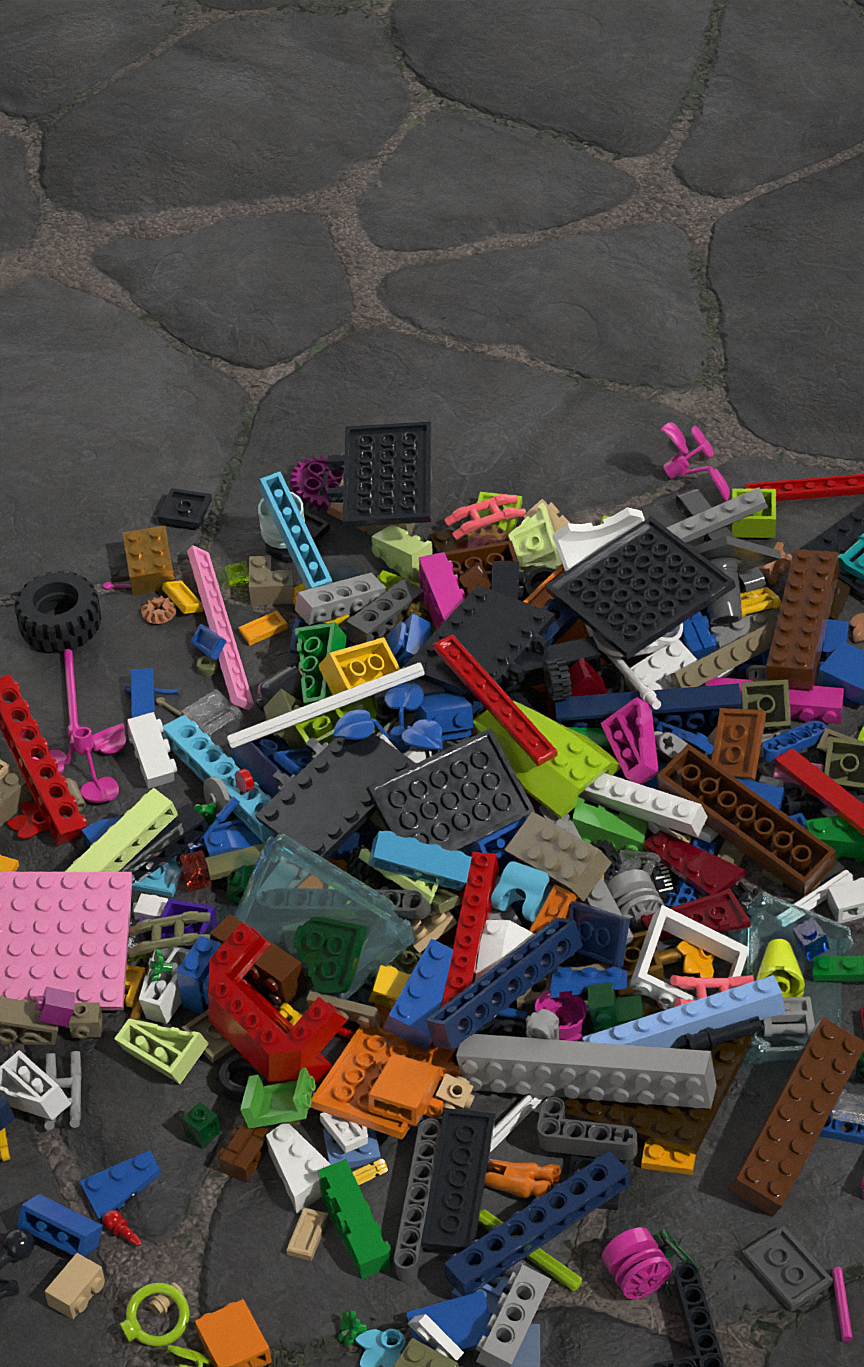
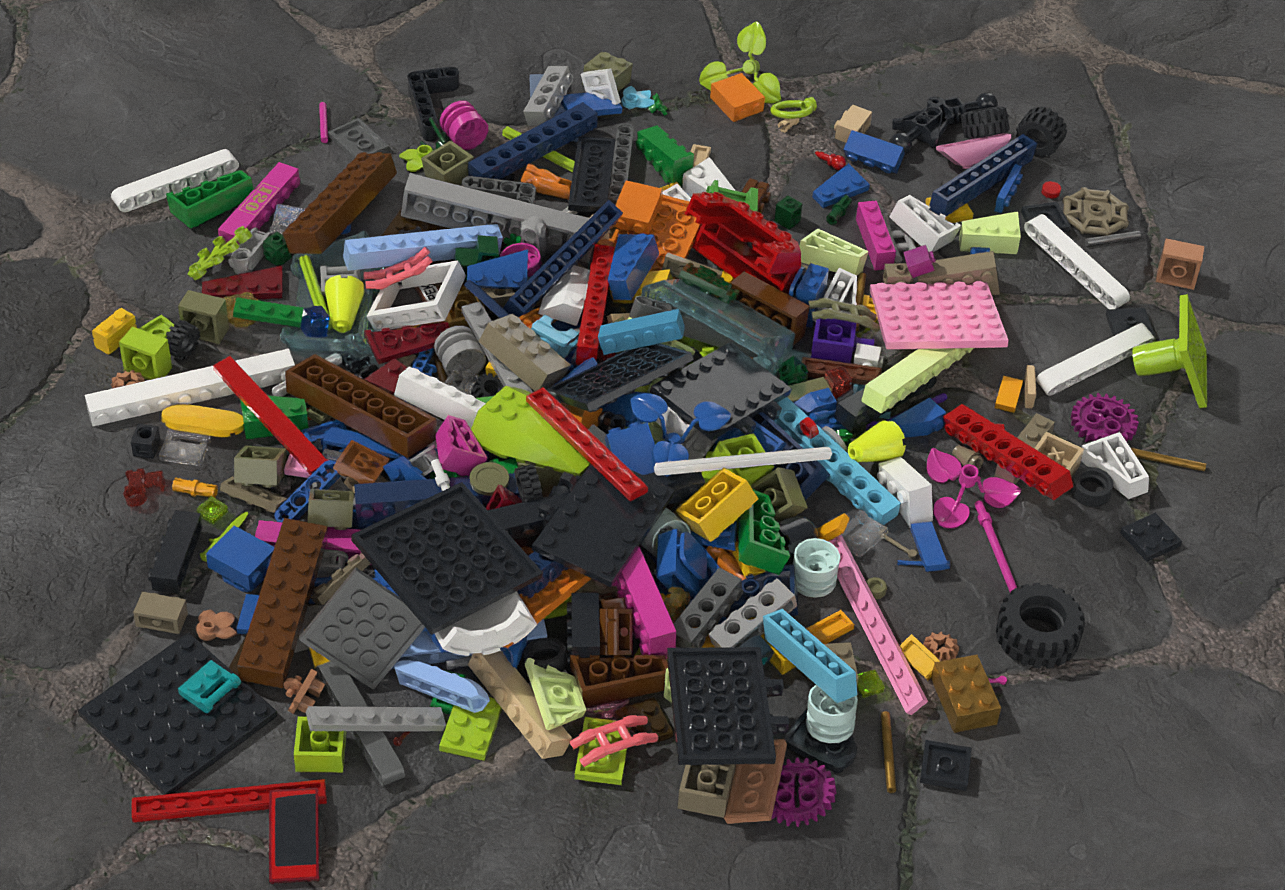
camera: 170 degrees right, 0 degrees up
(94, 1088) = (875, 234): none -> dark pink brick
(131, 1139) = (838, 210): none -> dark green axle
(159, 966) = (845, 286): green plant -> none
(170, 889) = (859, 373): none -> copper tile
(176, 780) = (878, 444): none -> neon yellow cone
(208, 641) = (879, 596): blue tile -> none
(233, 524) = (888, 752): none -> pearl gold piece
(242, 700) = (833, 528): none -> light orange tile
(264, 656) = (816, 567): none -> light aqua wheel
(598, 701) = (487, 476): none -> olive piece
(656, 1196) = (447, 163): none -> olive brick
(678, 465) = (397, 812): dark pink plant -> none
(701, 1230) = (414, 157): none -> lime plate
(769, 452) = (293, 835): none -> black slope
(812, 989) = (313, 284): none -> lime axle

